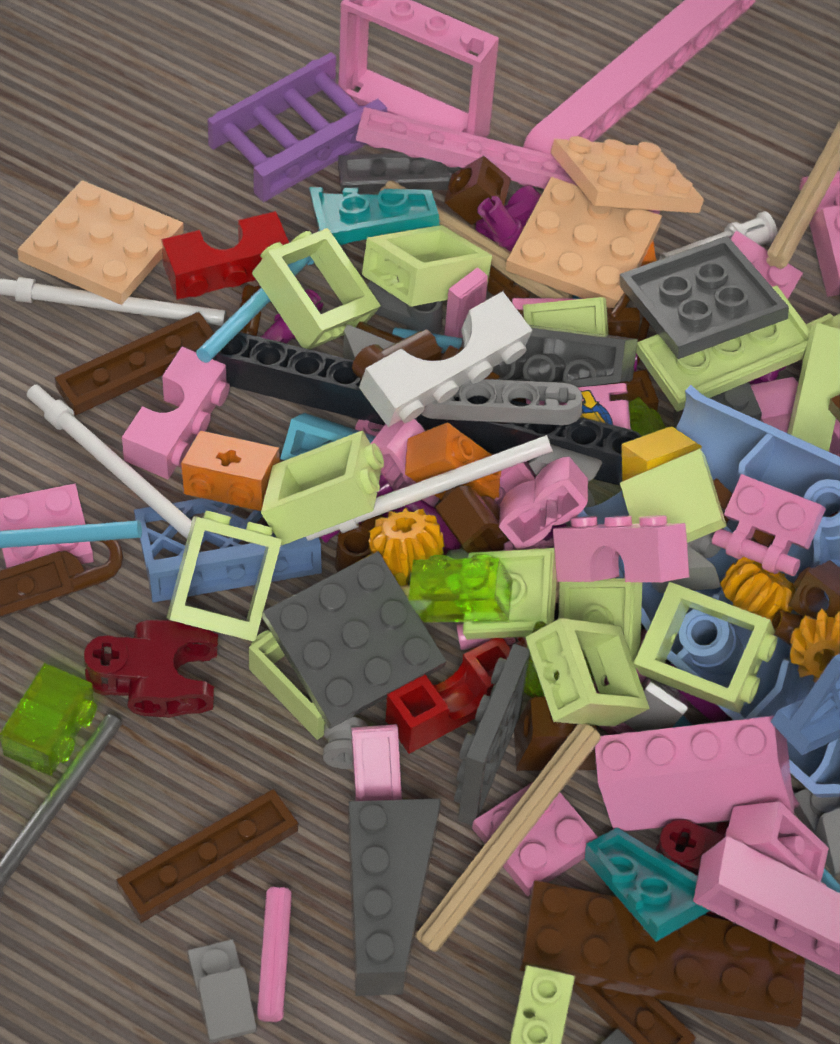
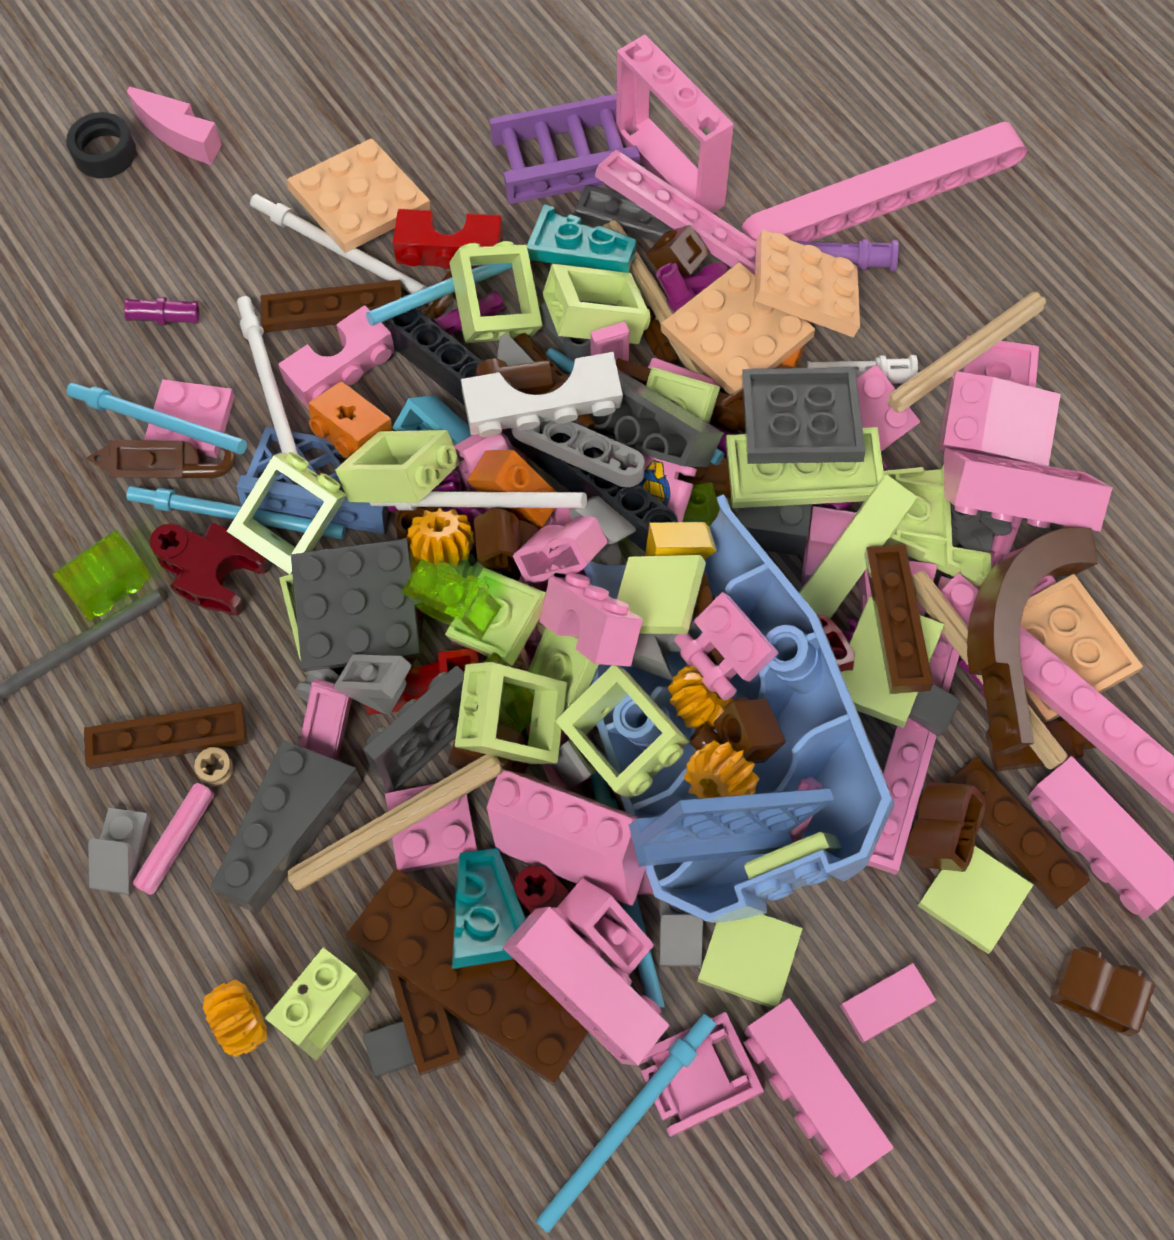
camera: 30 degrees right, 10 degrees up
(66, 621) = (167, 500): none -> medium azure bar
(271, 853) = (219, 777): none -> tan bush
(423, 698) = (374, 680): none -> light grey slope
(661, 132) = (862, 253): none -> medium lavender pin

